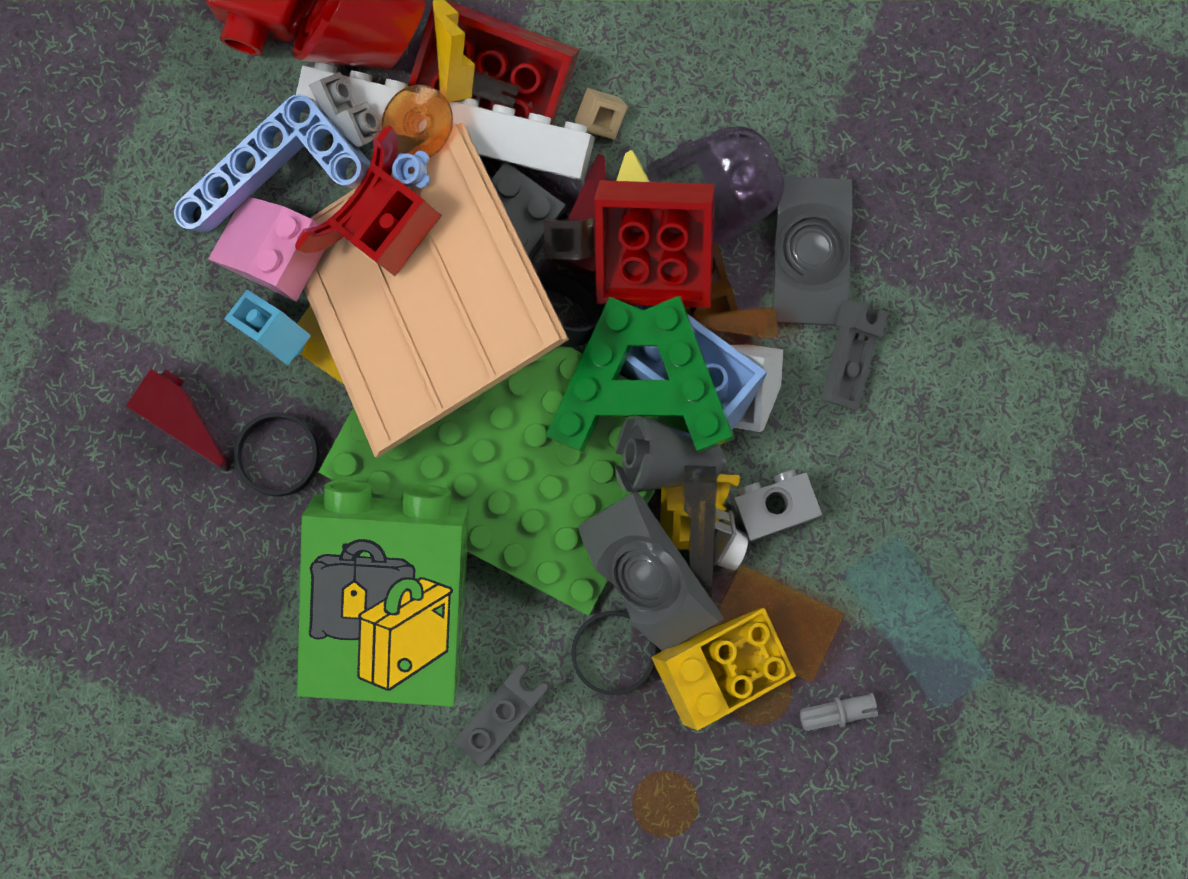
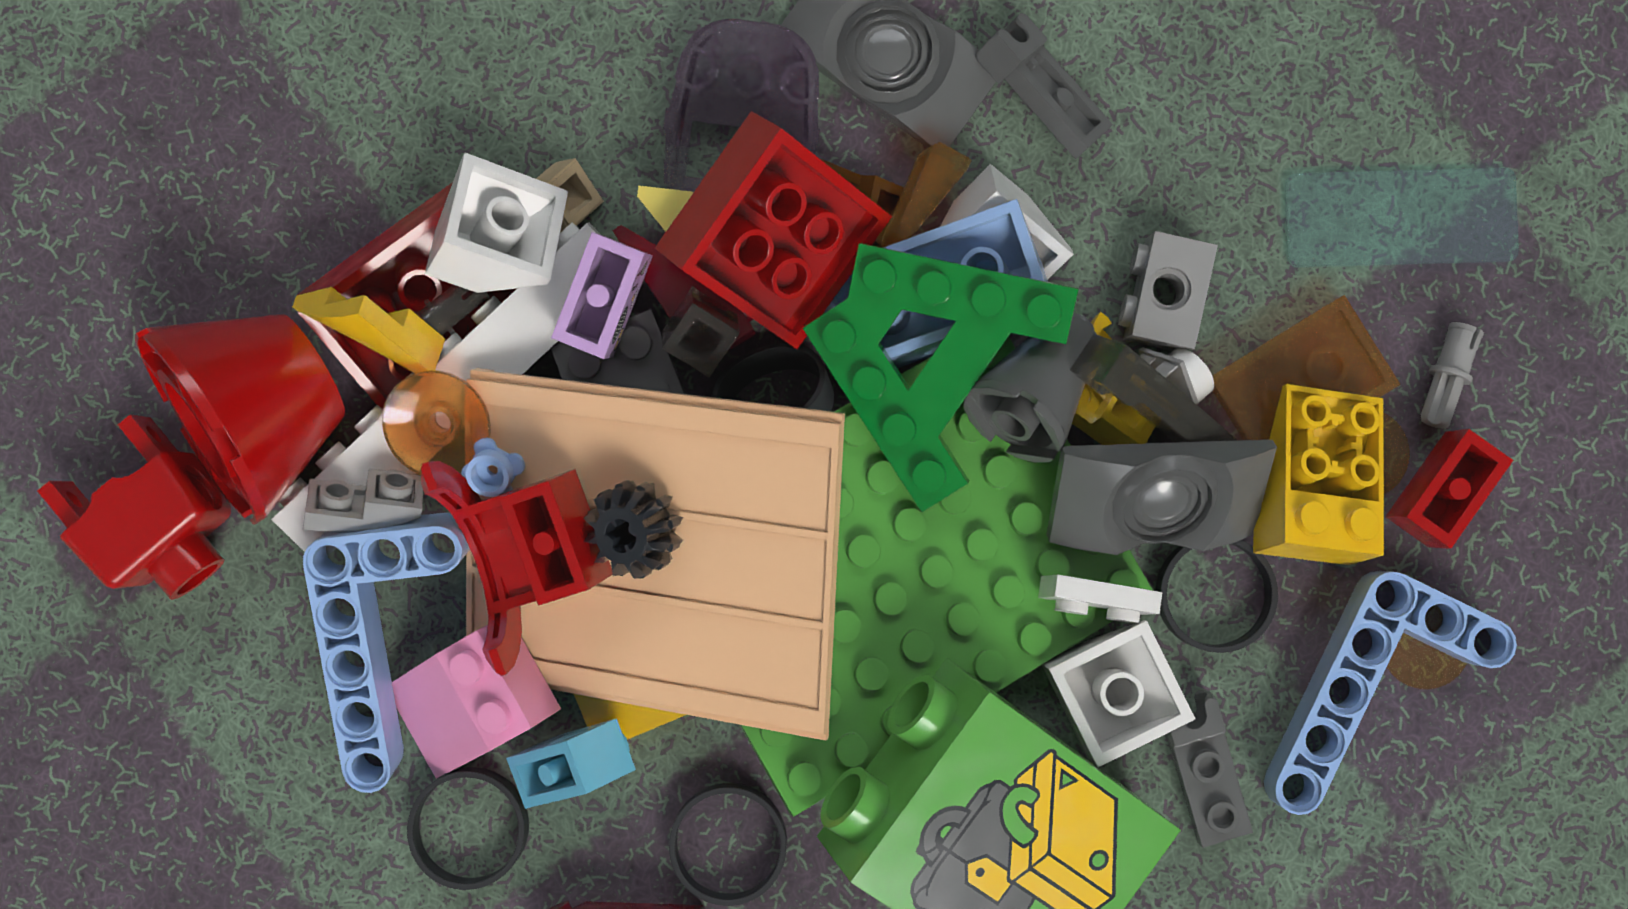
camera: 60 degrees left, 5 degrees up
(164, 269) = (422, 858): none -> black tyre
(427, 268) = (633, 529): none -> black gear
(513, 624) = (1118, 692): none -> white slope
(552, 168) = (601, 296): none -> lavender brick
(553, 85) = (496, 229): none -> white slope
(568, 591) = (1122, 602): none -> white plate
(621, 770) = (1364, 673): none -> light blue beam
(766, 750) = (1449, 488): none -> red brick

